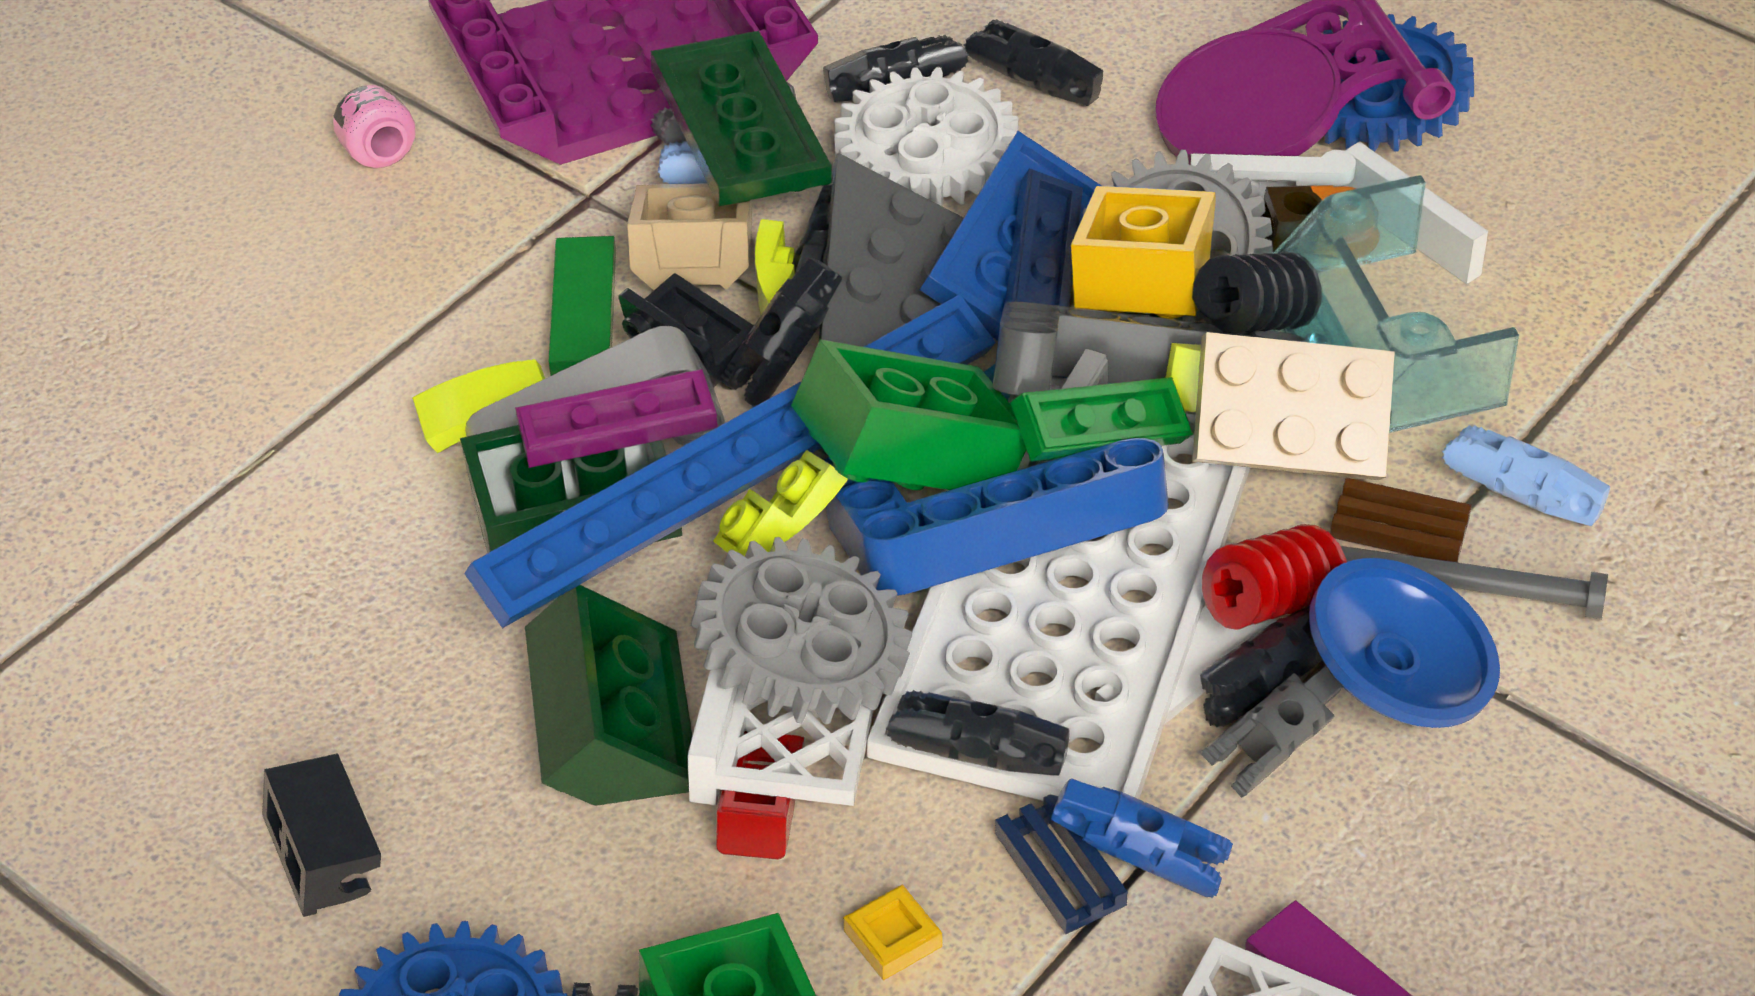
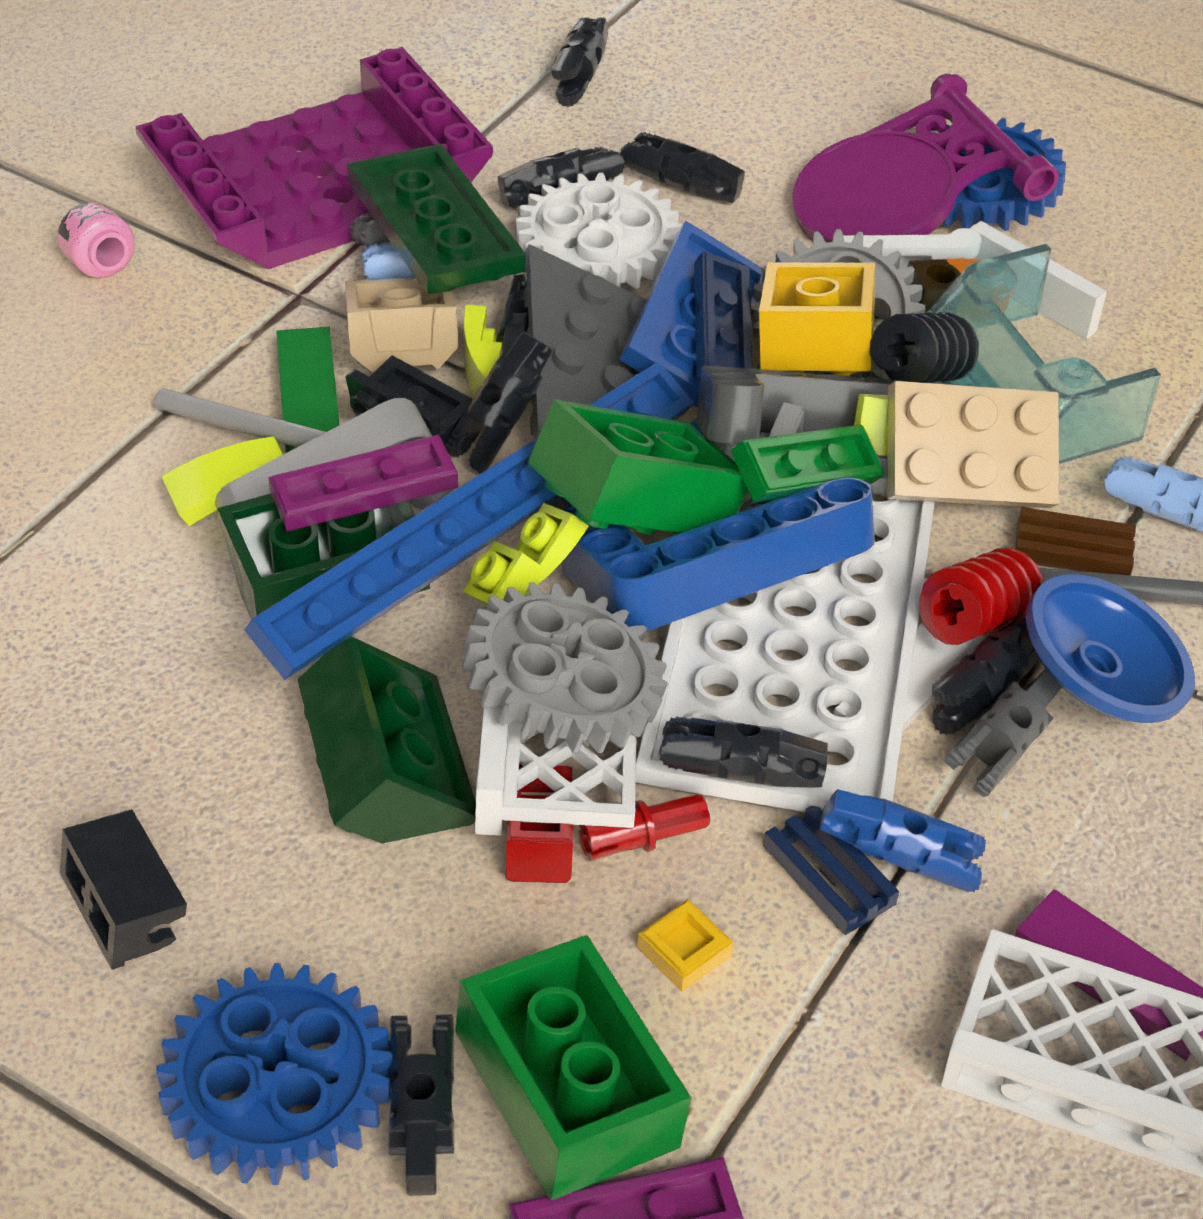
camera: 10 degrees left, 0 degrees up
(497, 336) = (234, 418): none -> light grey bar
(872, 805) = (650, 825): none -> red axle

